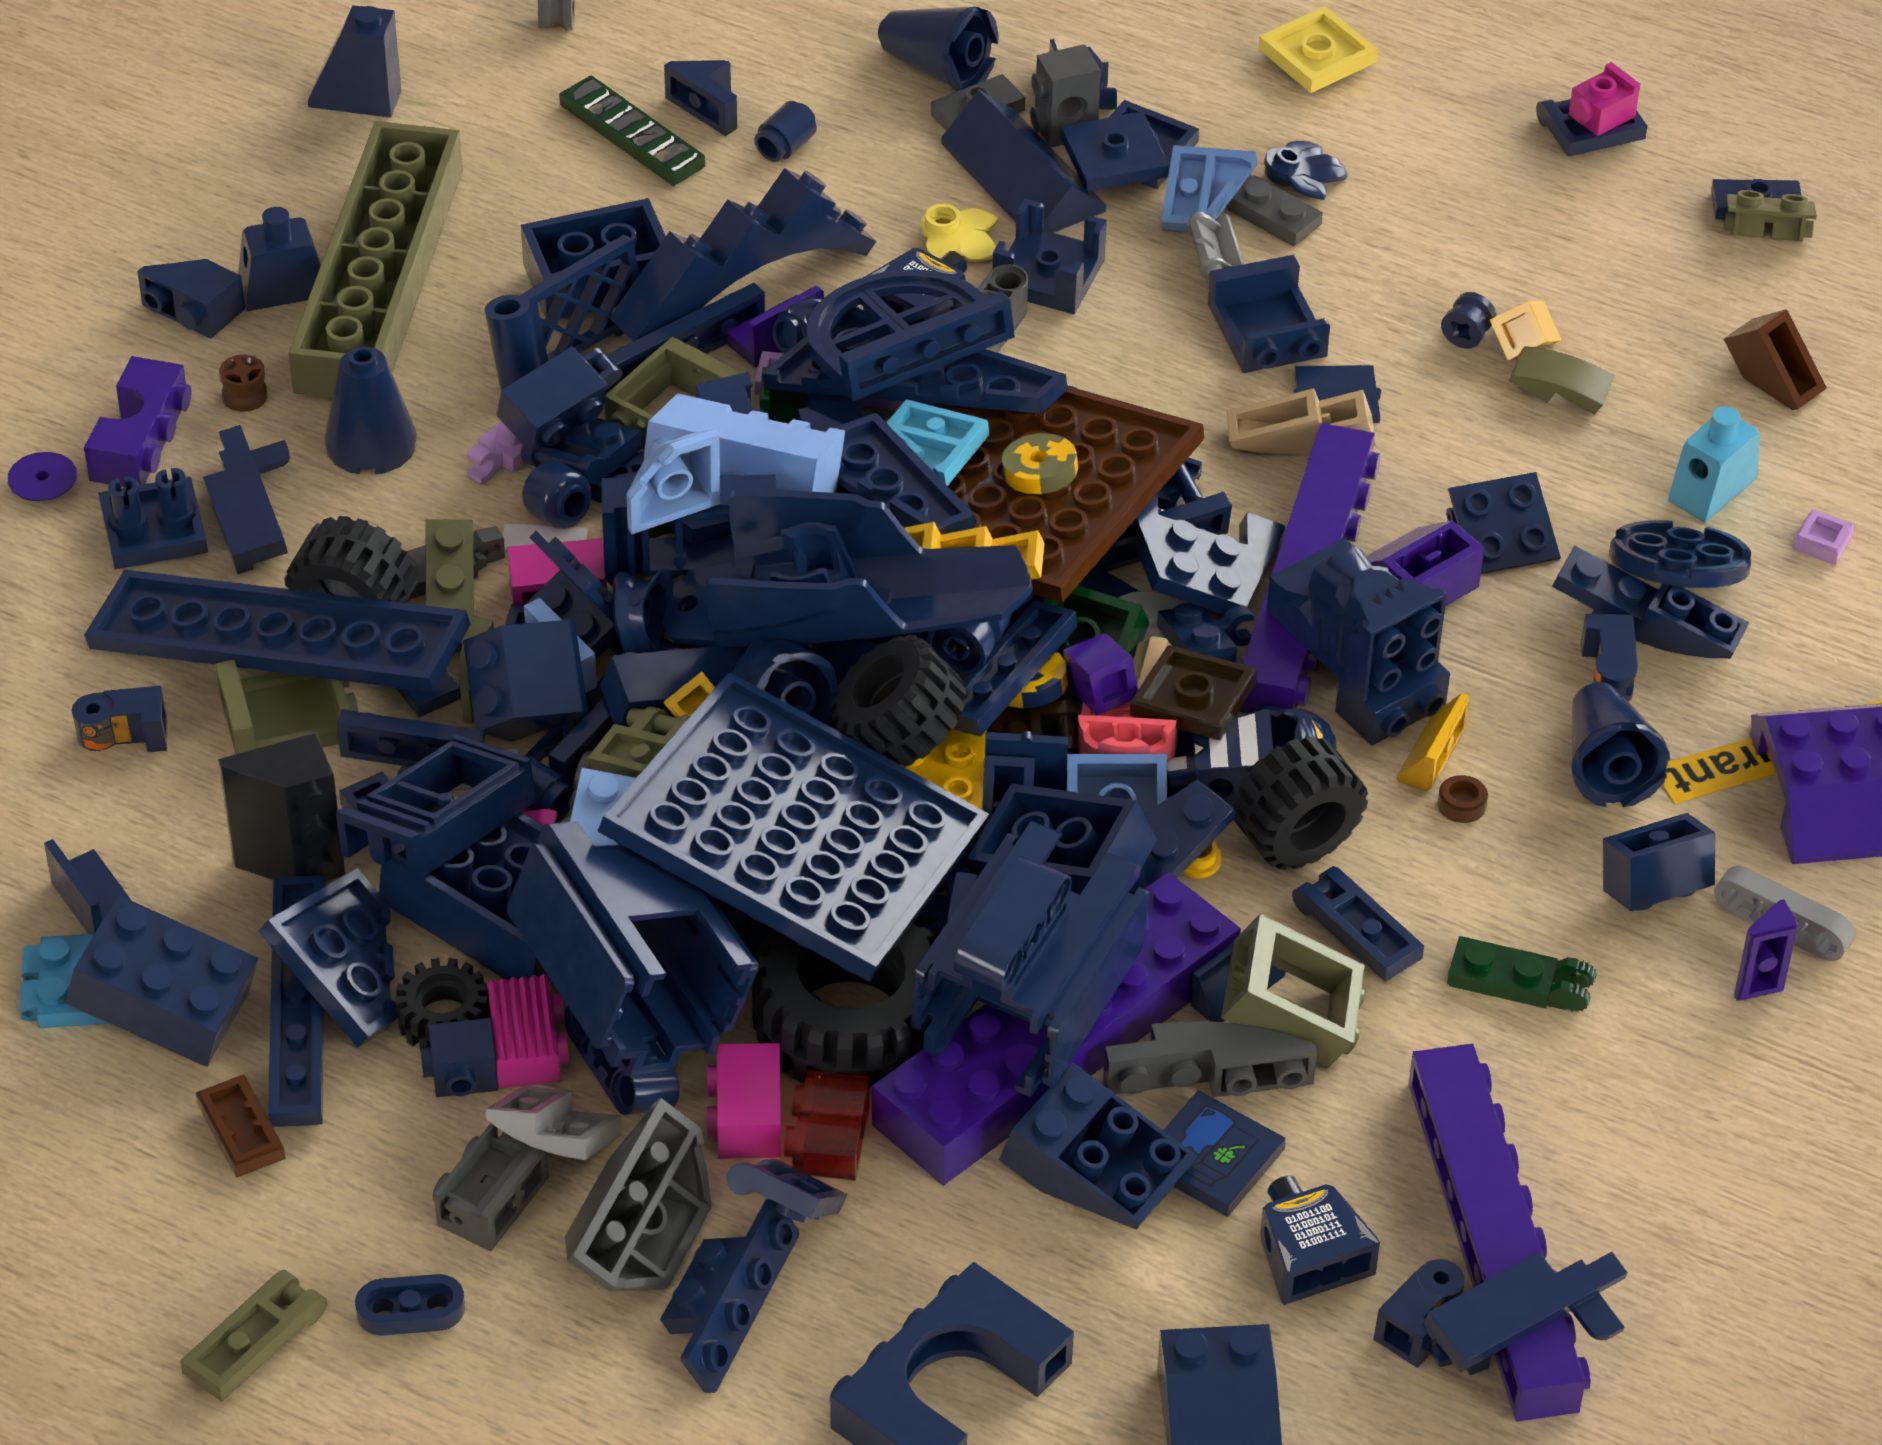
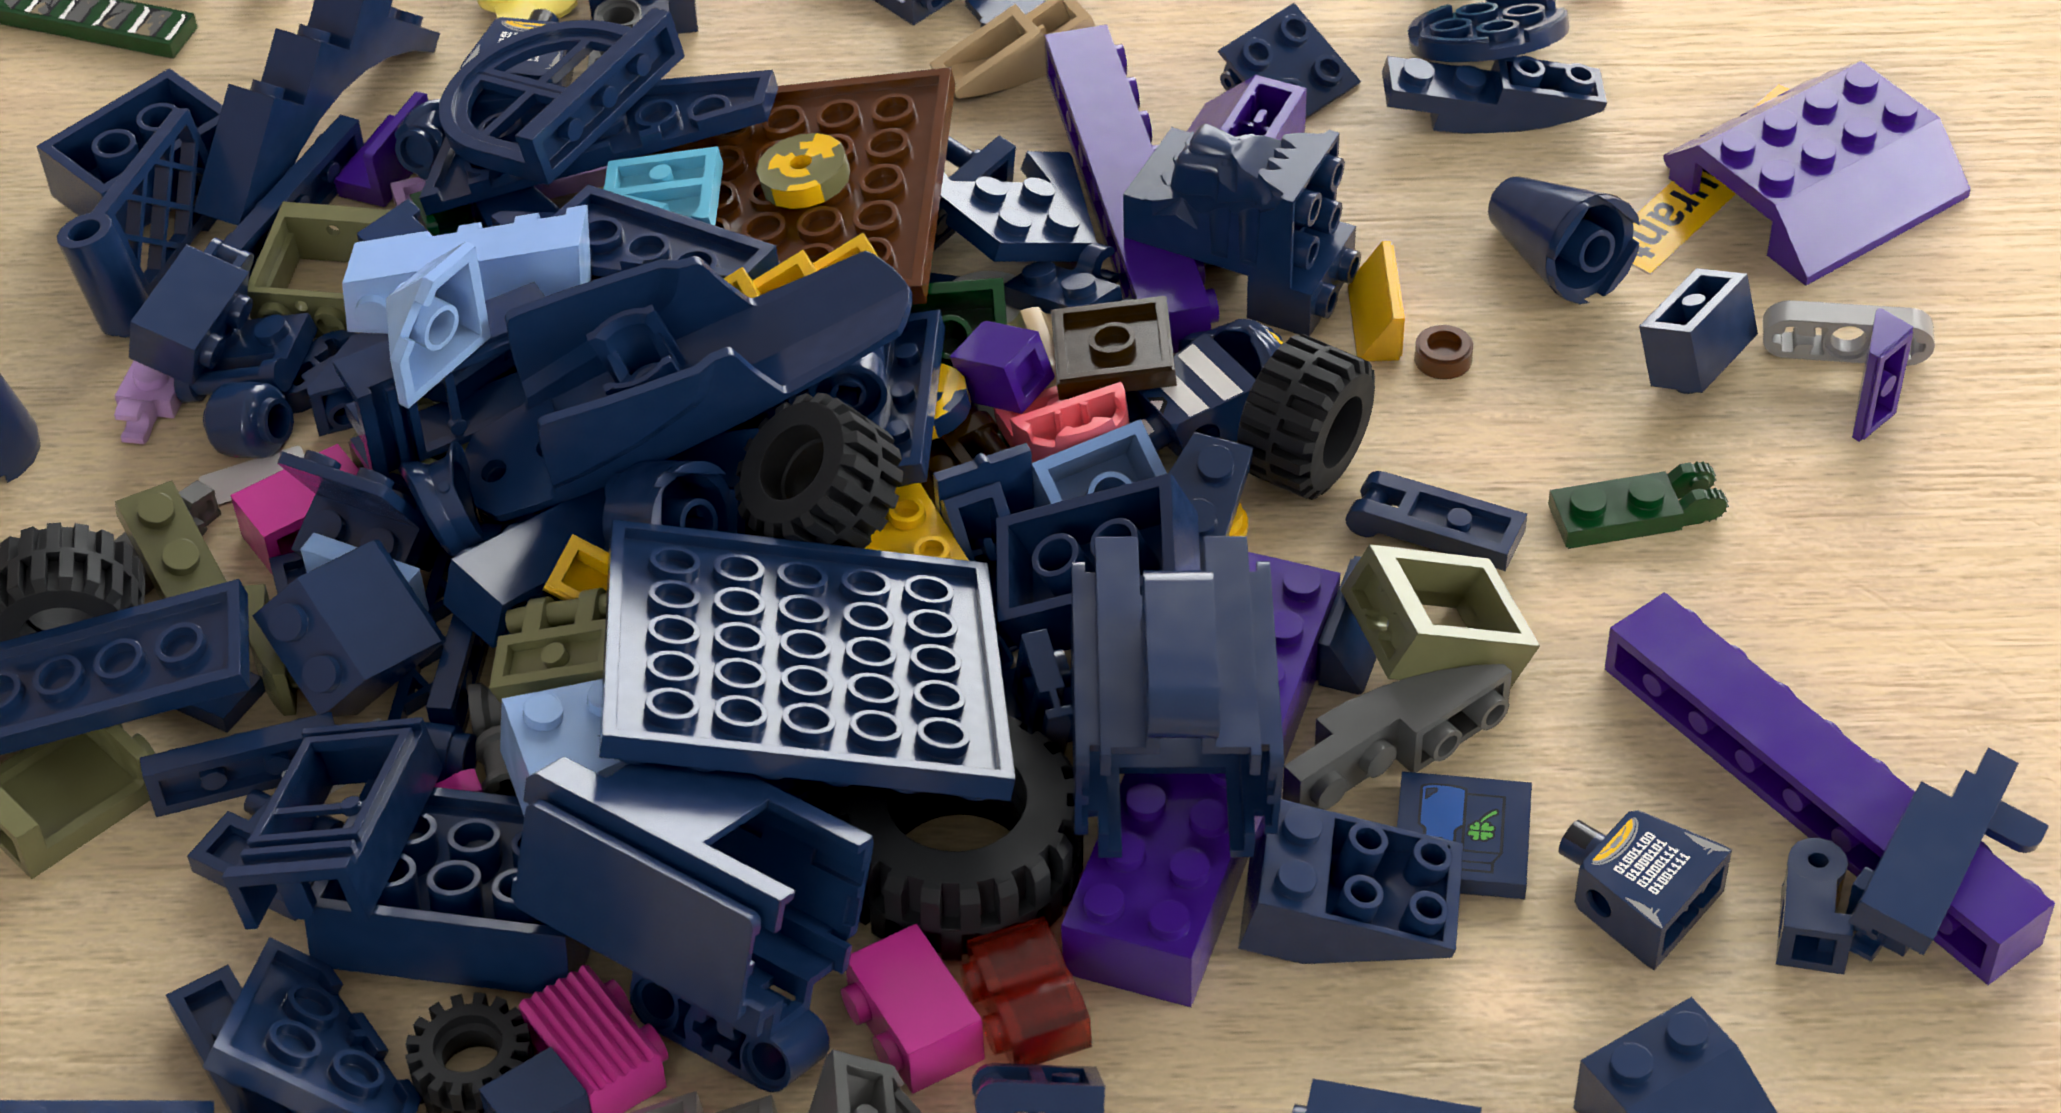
camera: 25 degrees left, 0 degrees up
(283, 810) = (146, 904): black slope -> none
(1613, 645) = (1486, 146): dark blue leg -> none

